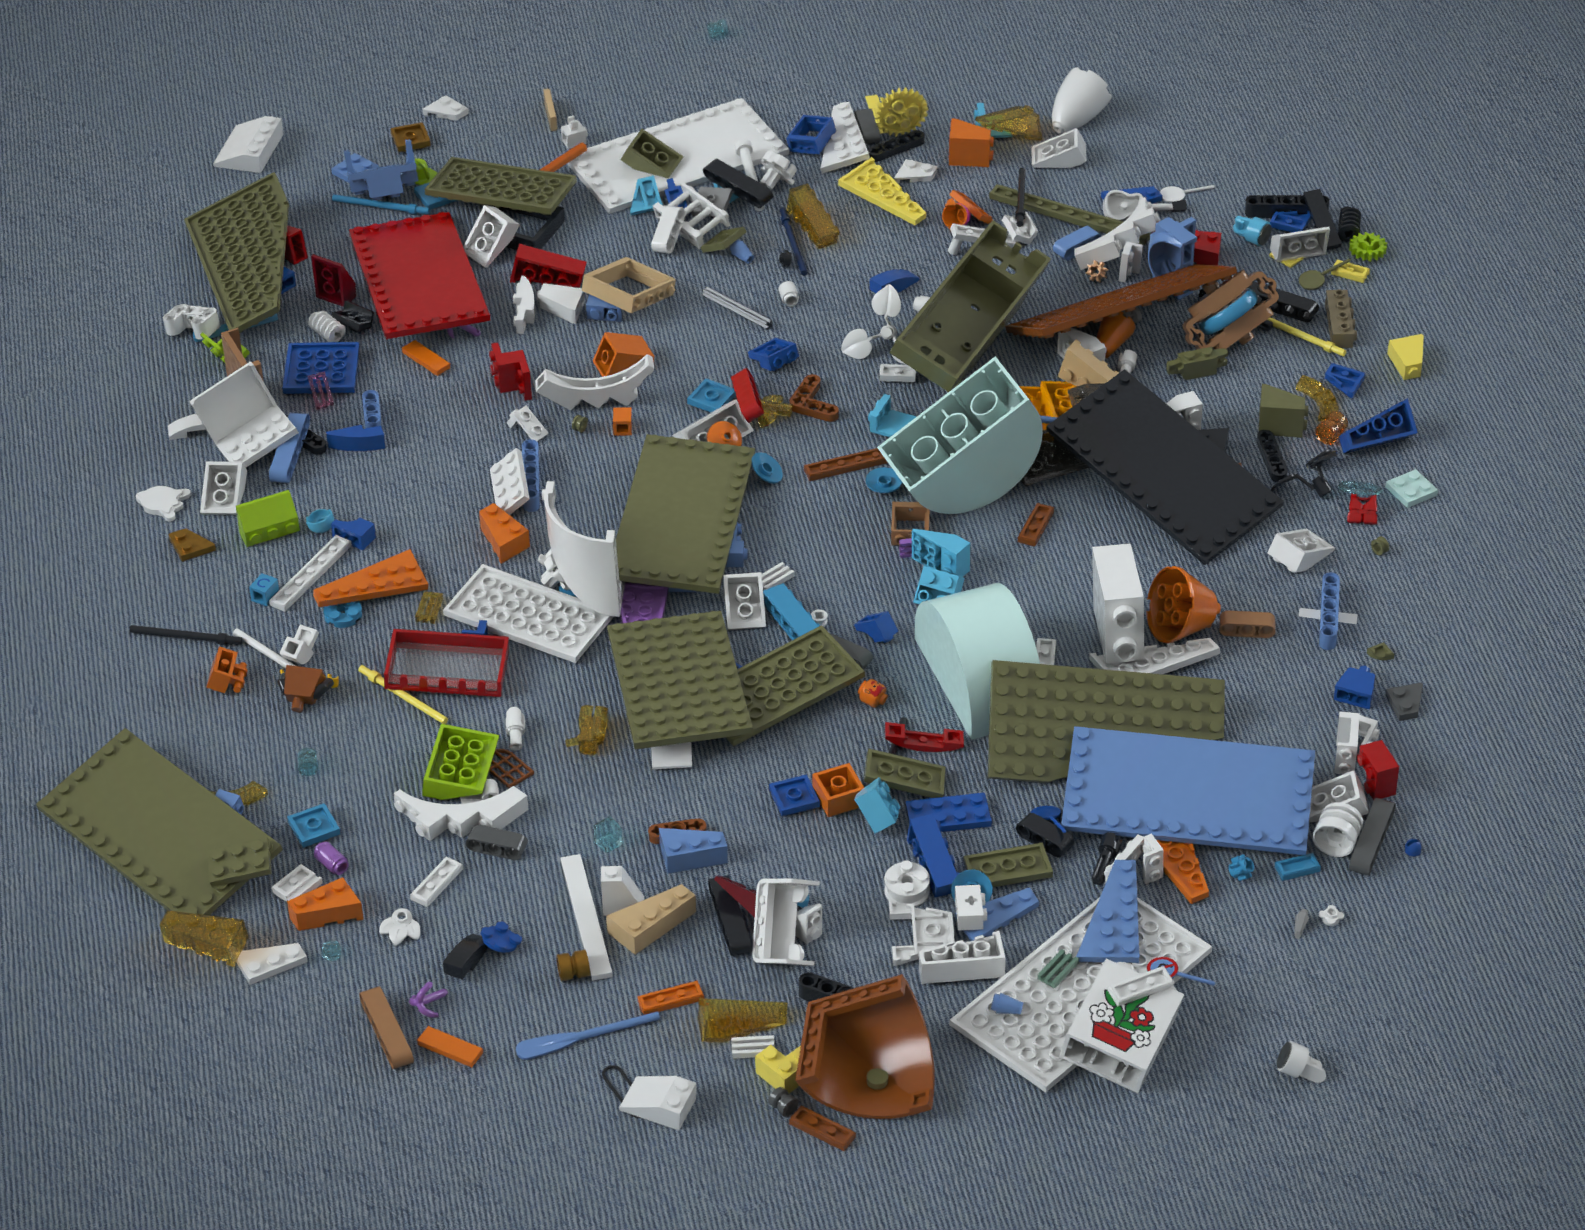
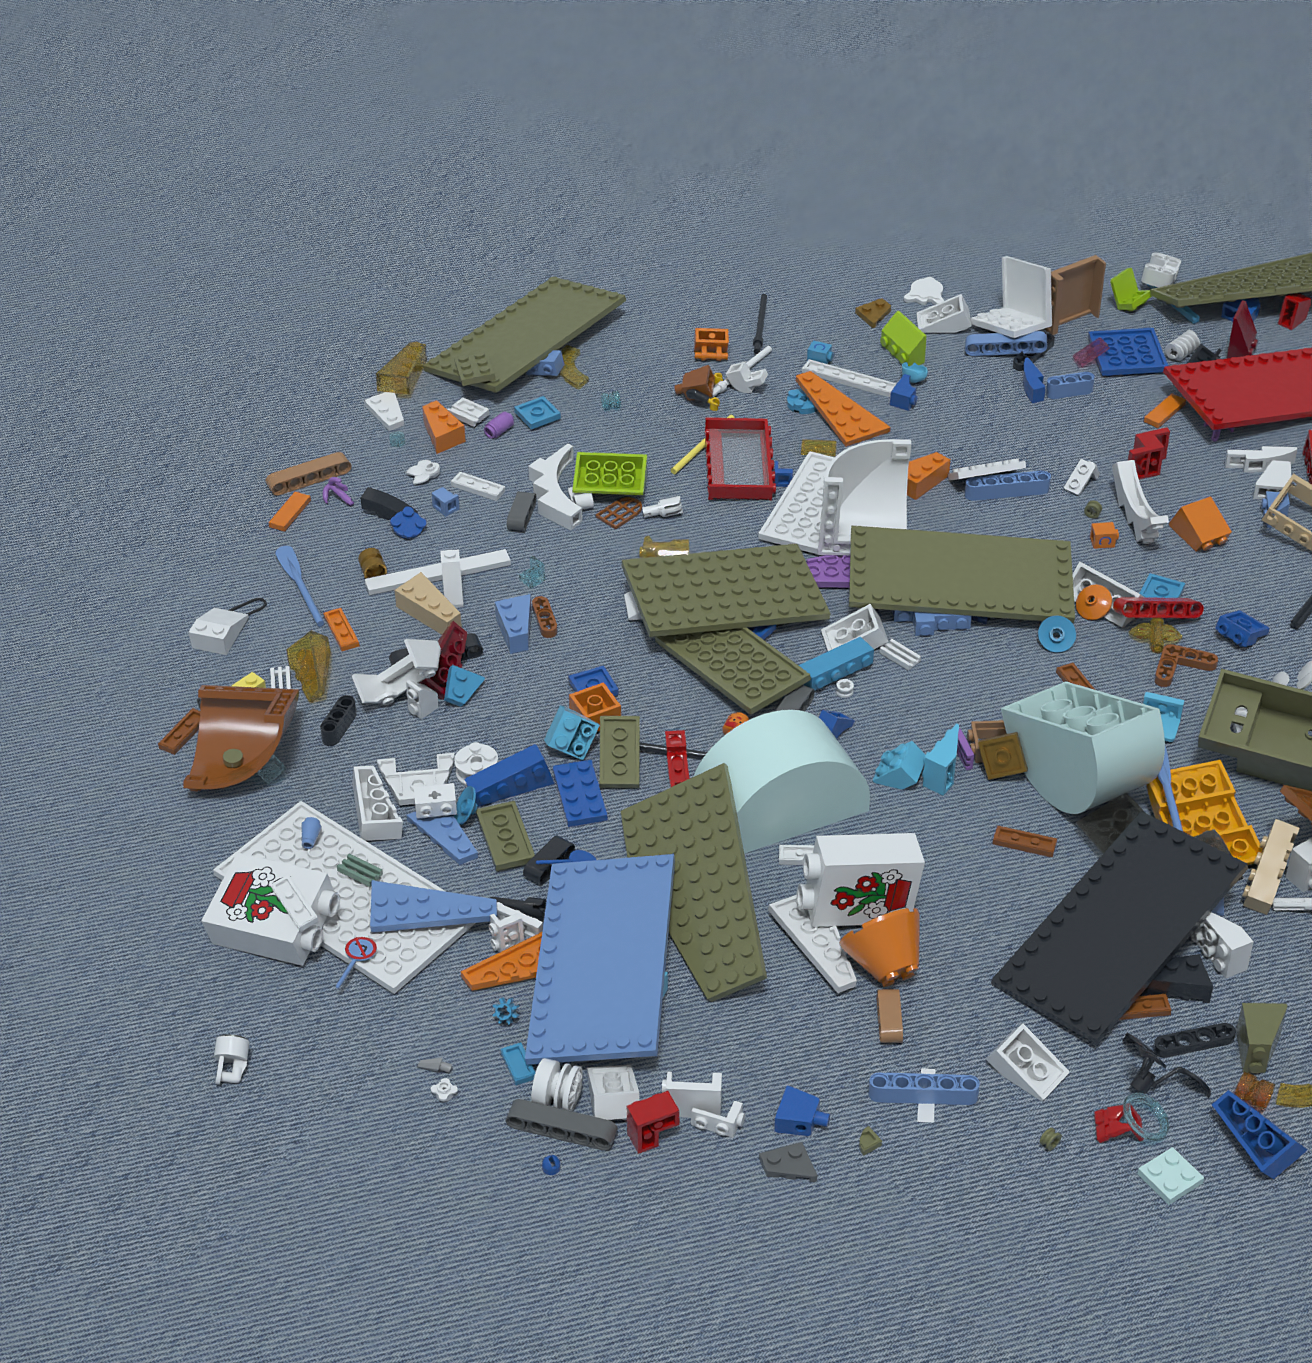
camera: 85 degrees right, 0 degrees up
(466, 906) = (445, 501): none -> medium blue brick
(944, 512) = (1002, 755): none -> pearl gold plate

